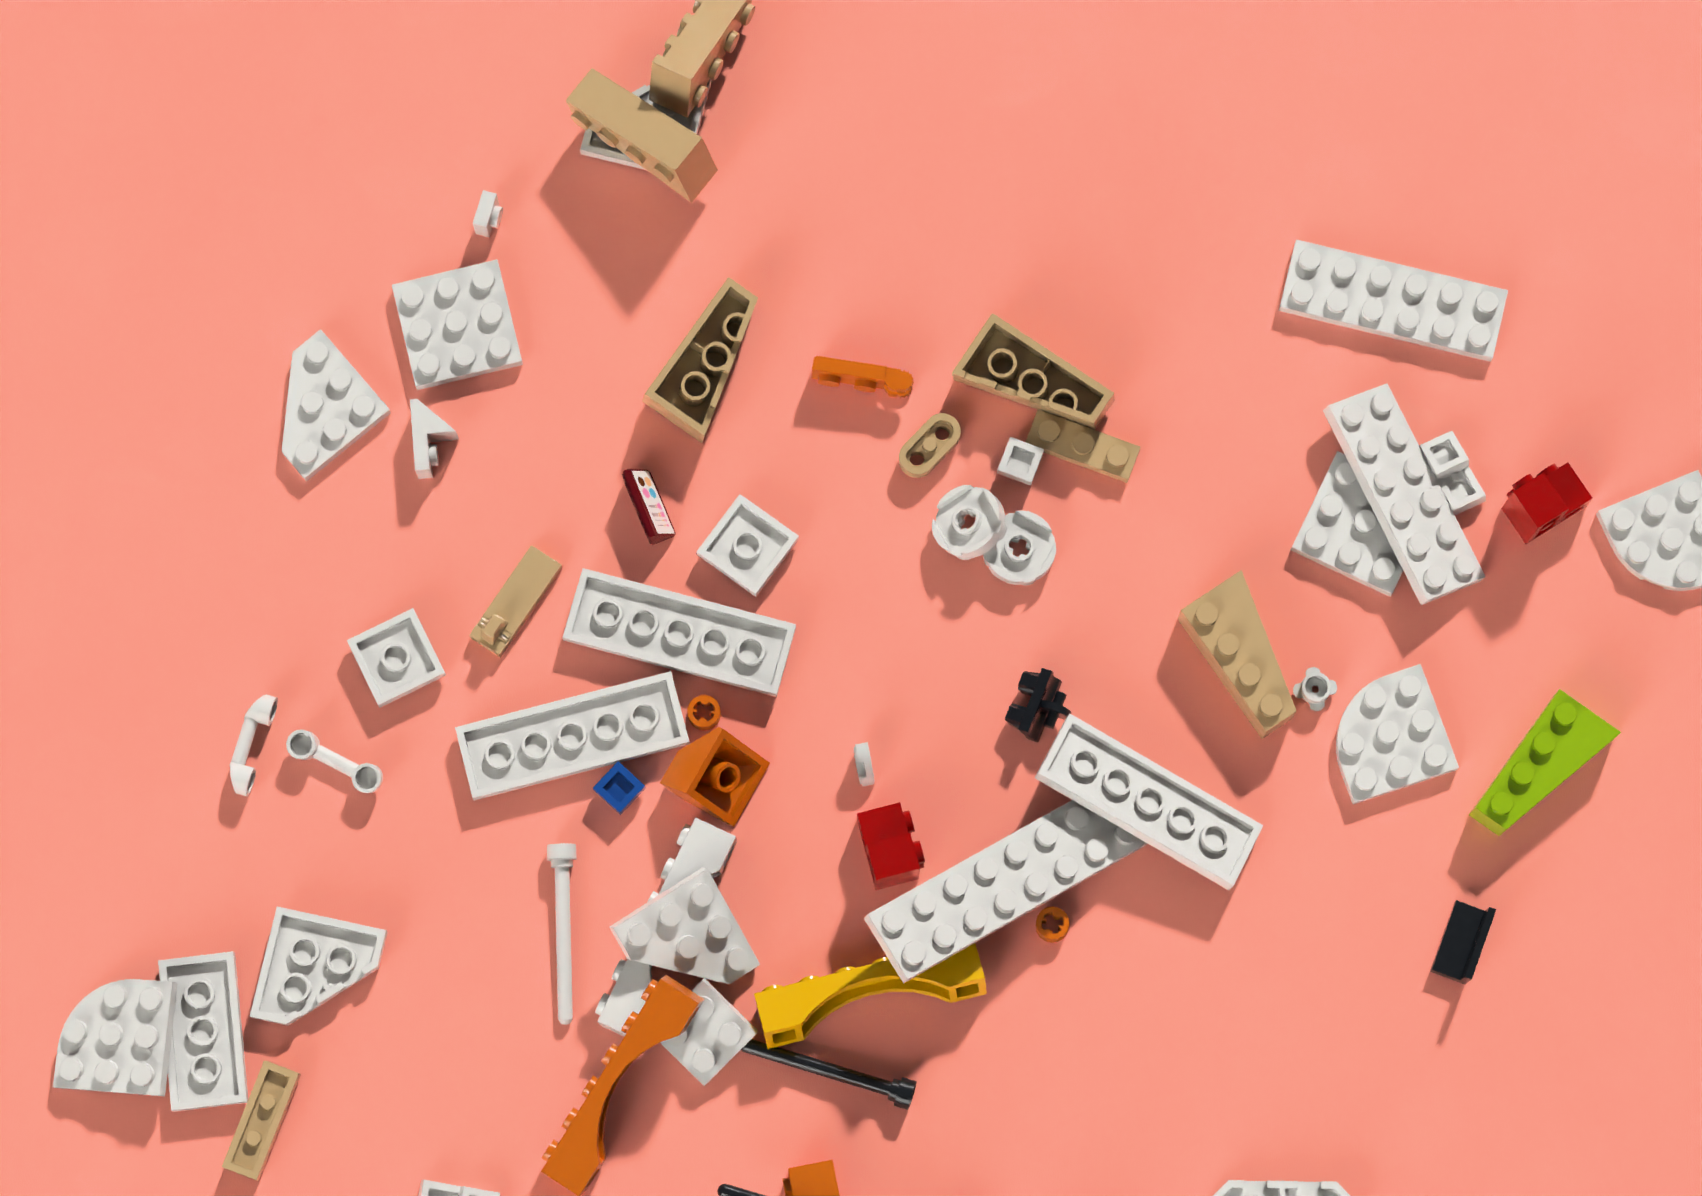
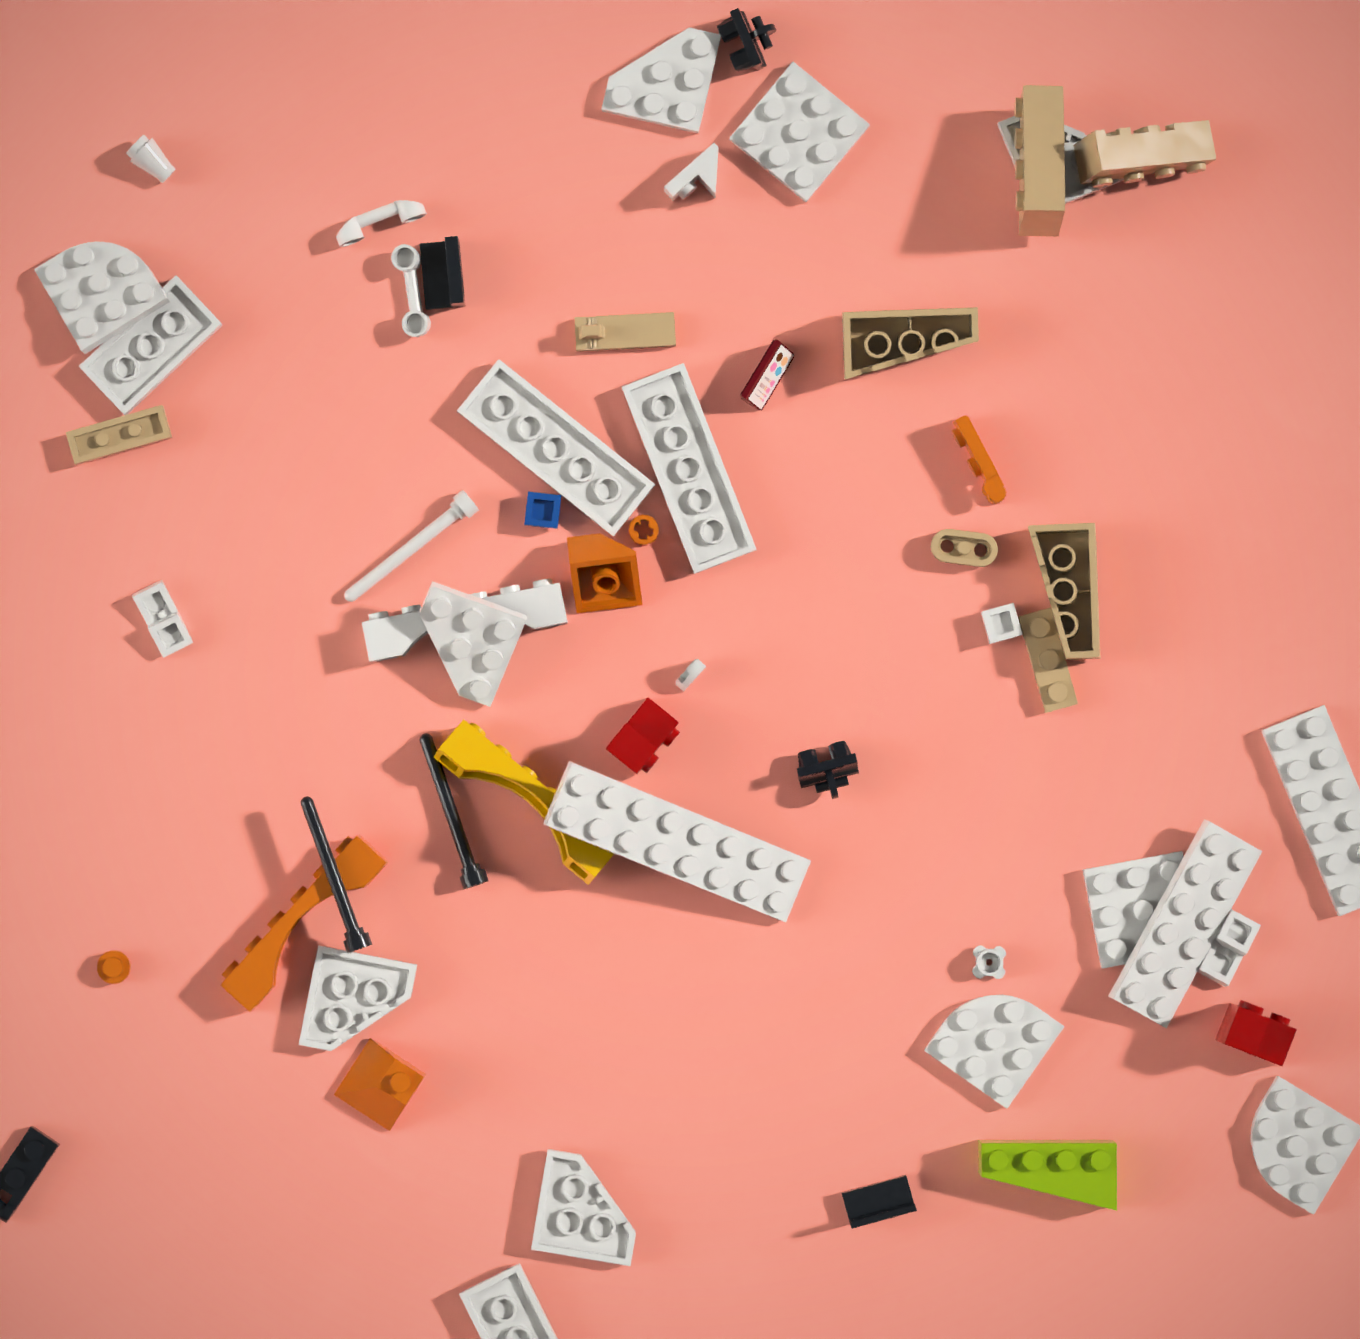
camera: 55 degrees right, 10 degrees up
(37, 907) = (150, 158): none -> white cone
(312, 962) = (255, 385): white plate -> none
(342, 723) = (442, 274): none -> black panel
(357, 316) = (739, 26): none -> black hips
(396, 657) = (519, 277): white plate -> none
(487, 214) = (898, 91): white plate -> none
(581, 1150) = (264, 678): orange arch -> none
(712, 1036) = (411, 703): white plate -> none
(747, 545) = (790, 469): white plate -> none
(985, 531) = (928, 637): white plate -> none
(1025, 568) = (947, 655): white plate -> none
(1047, 934) = (663, 897): orange bush -> none
(1149, 801) = (812, 902): white plate -> none
(1238, 650) = (976, 884): tan wedge -> none

